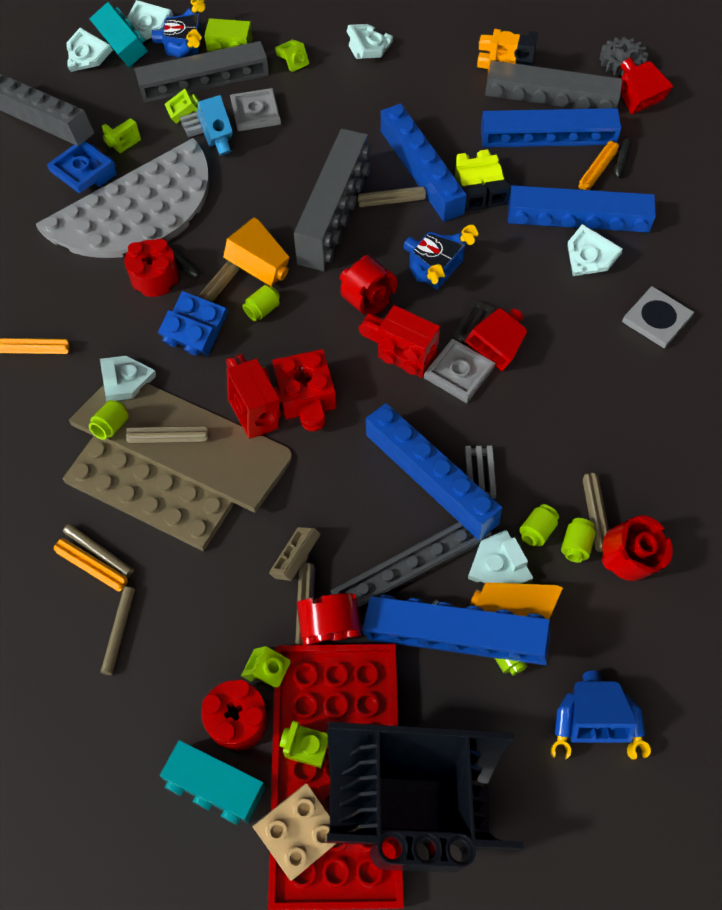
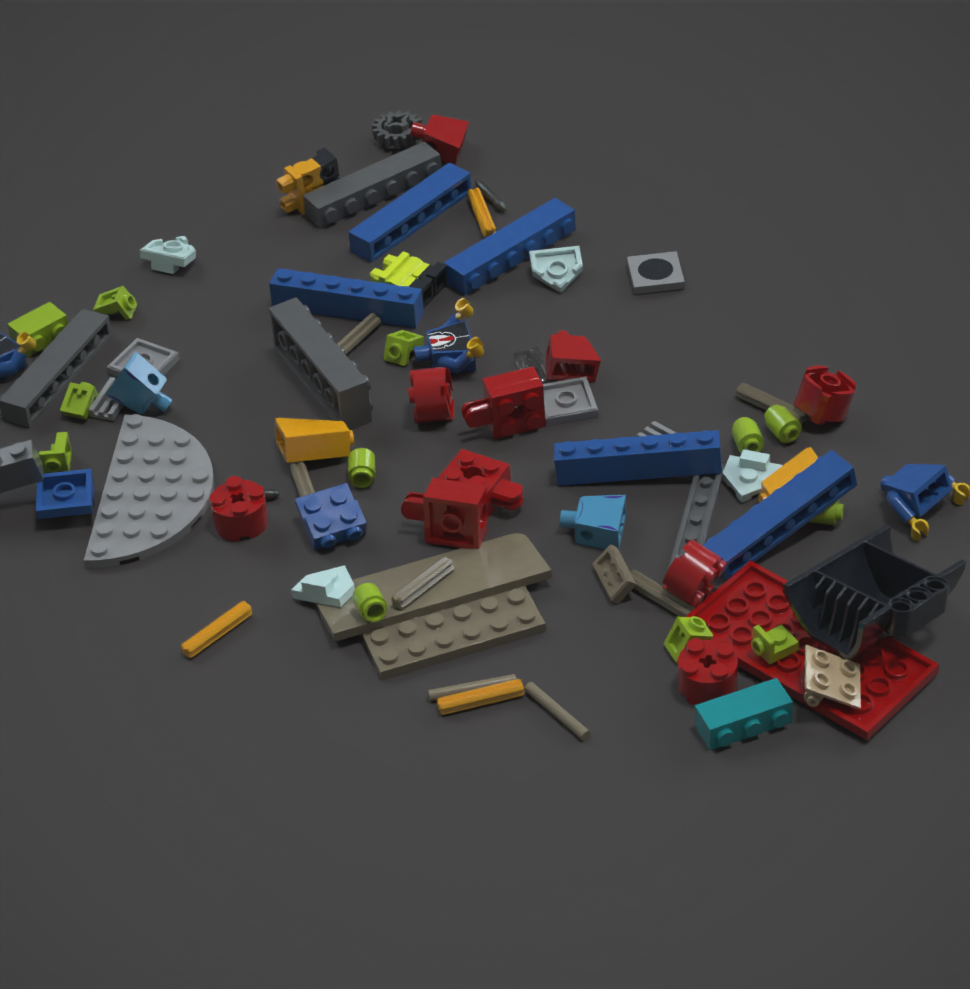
camera: 45 degrees left, 20 degrees down
(343, 496) = (597, 520): none -> dark azure torso
(410, 226) = (400, 345): none -> lime bracket

